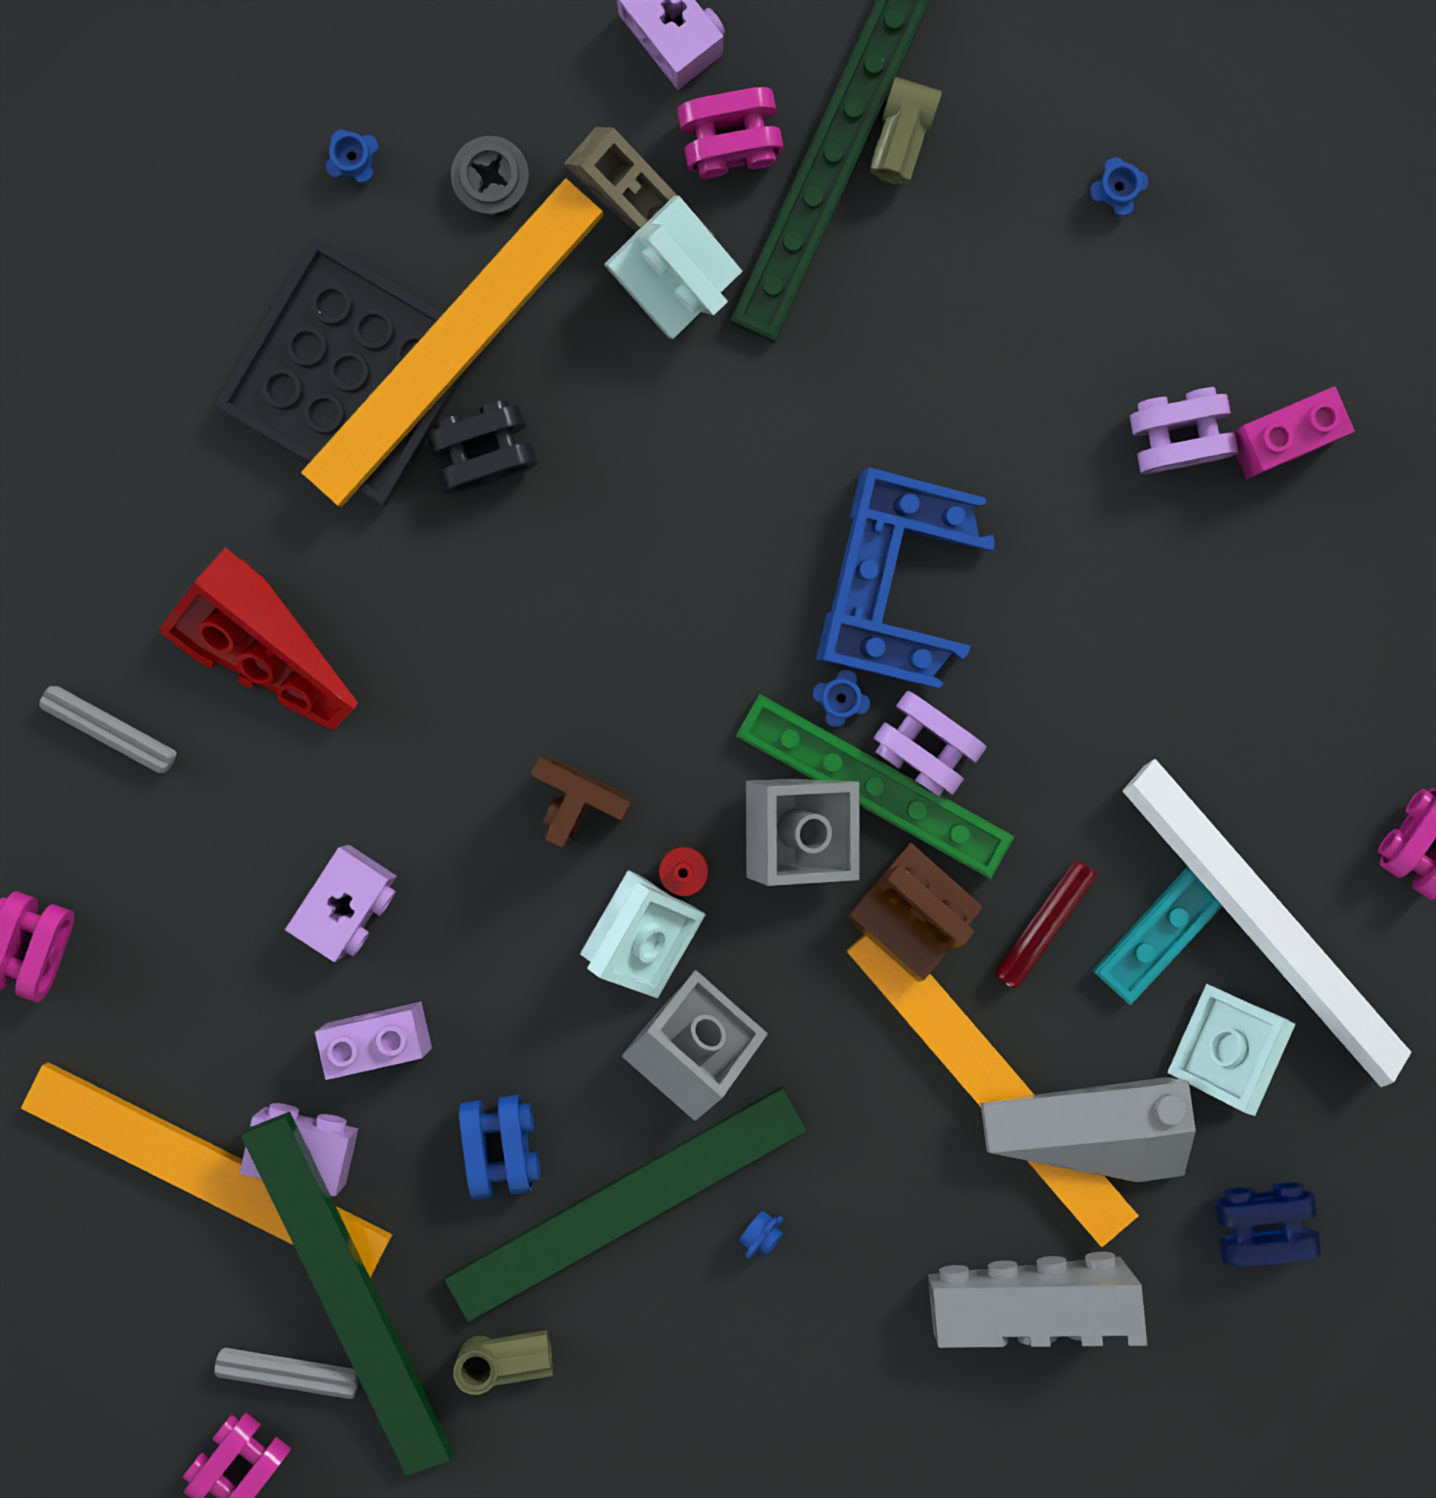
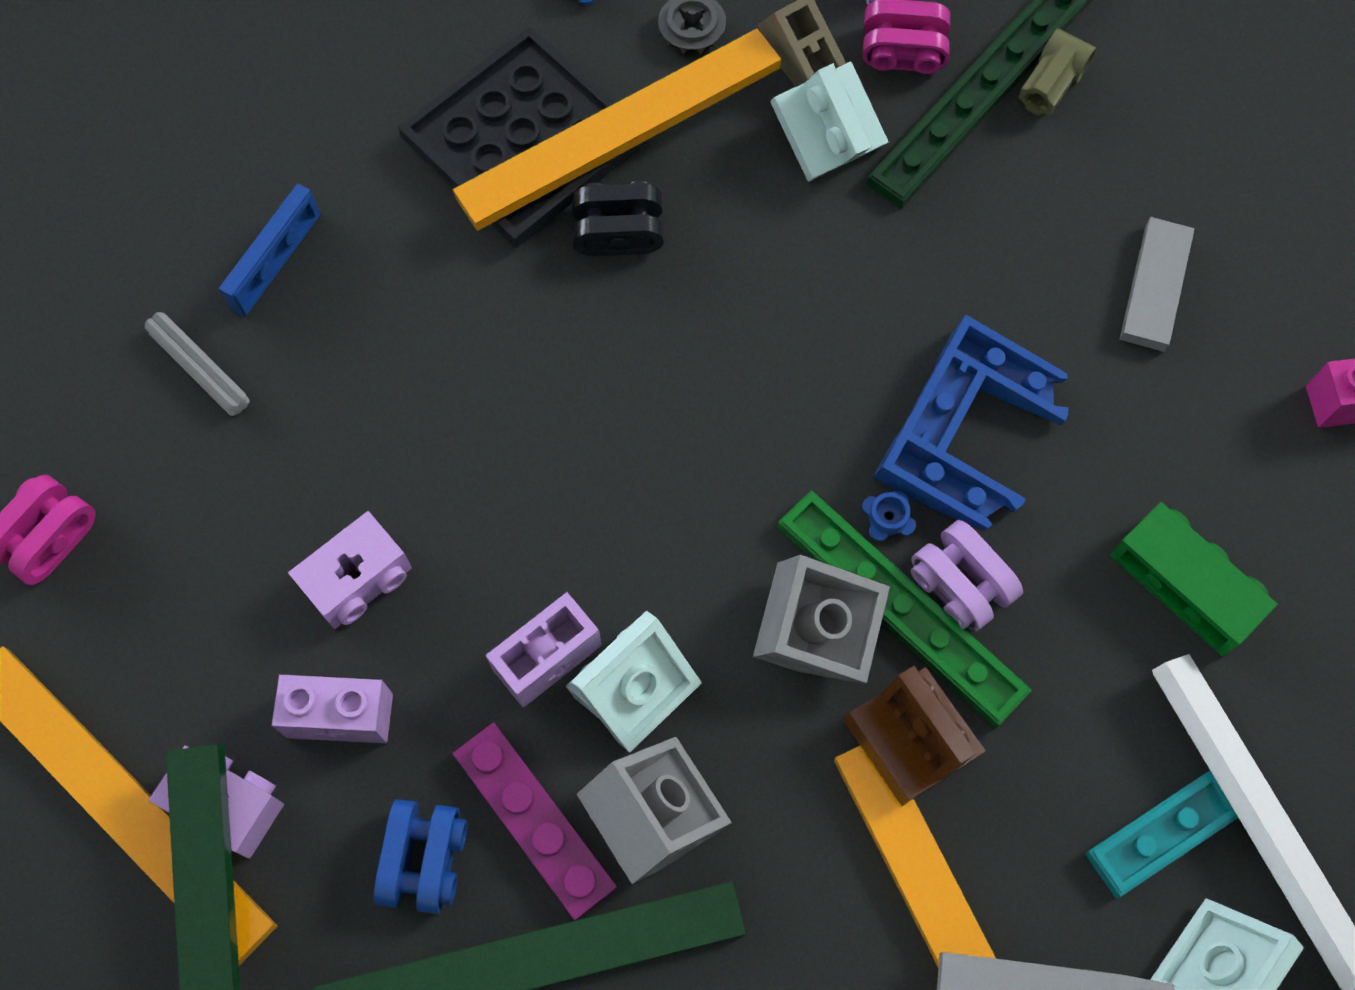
camera: 20 degrees right, 20 degrees down
(135, 586) = (270, 250): none -> blue tile
(243, 625) = (353, 309): red wedge -> none
(550, 933) = (544, 649): none -> lavender brick
(582, 791) = (609, 525): reddish brown bracket -> none
(589, 1082) = (535, 821): none -> magenta plate
(685, 858) = (694, 645): red tile -> none
(1046, 924) = (1046, 789): dark red axle -> none
(1058, 362) = (1157, 284): none -> light grey tile
(1119, 172) = (1243, 150): blue plate -> none
(1147, 684) = (1194, 579): none -> green brick
(1200, 408) = (1266, 365): lavender brick -> none

